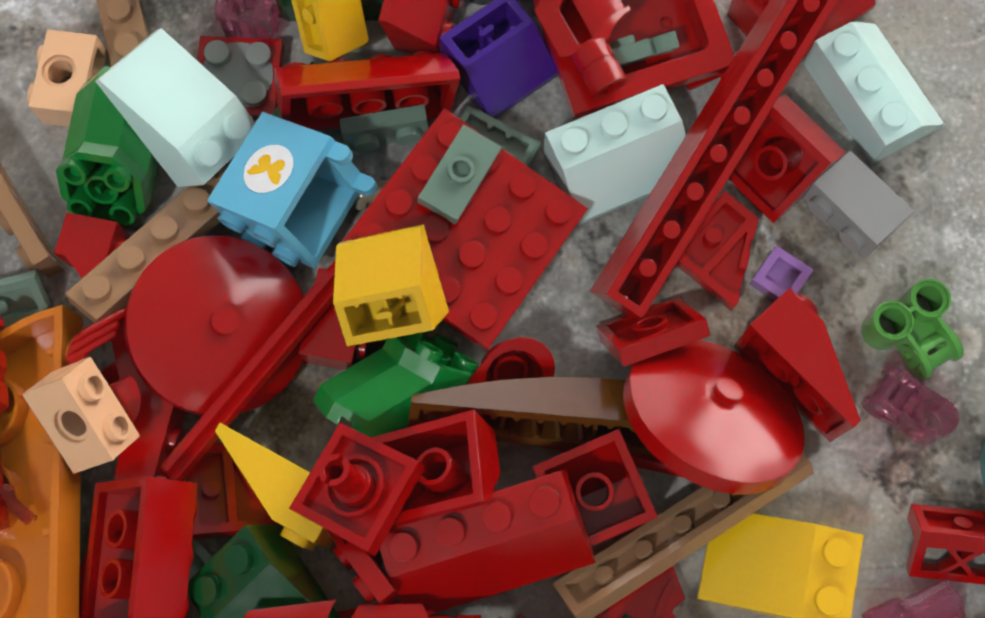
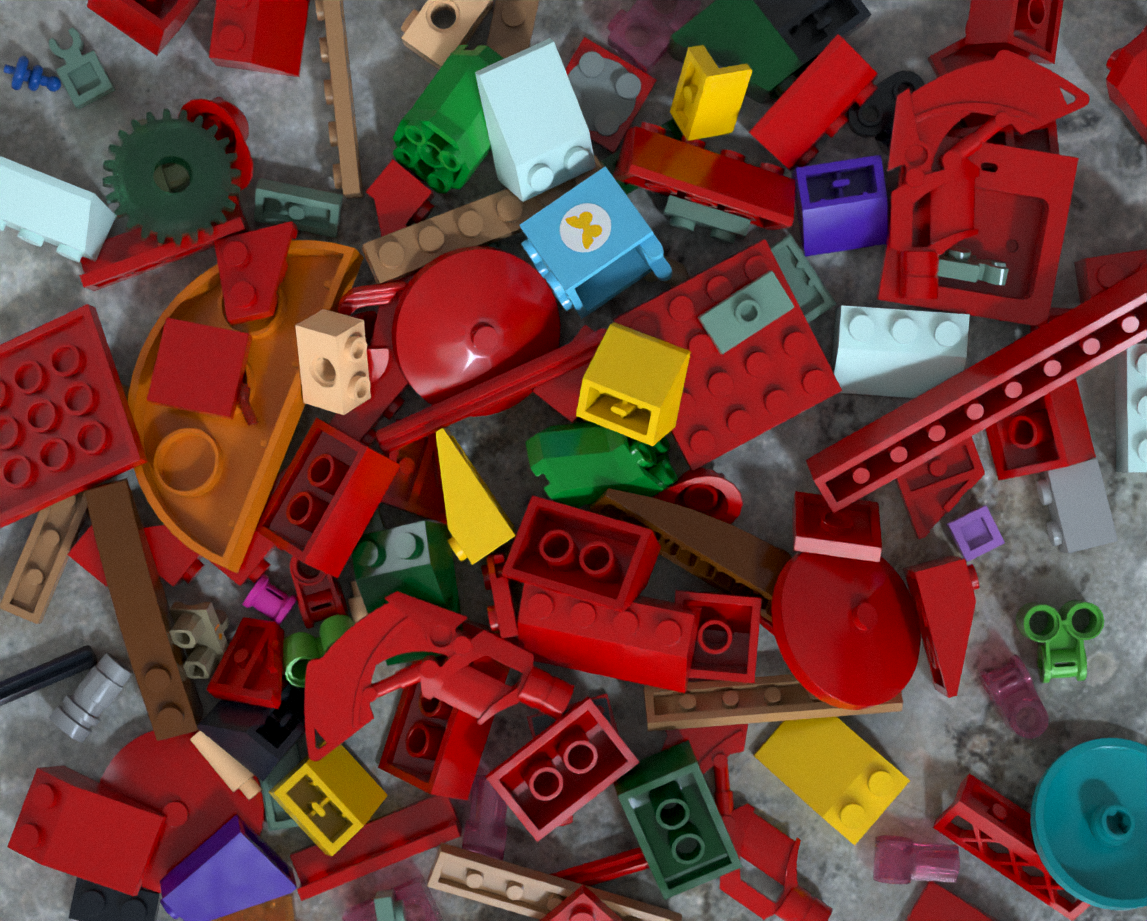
camera: 25 degrees right, 15 degrees up
(357, 488) = (528, 544): red plate -> none

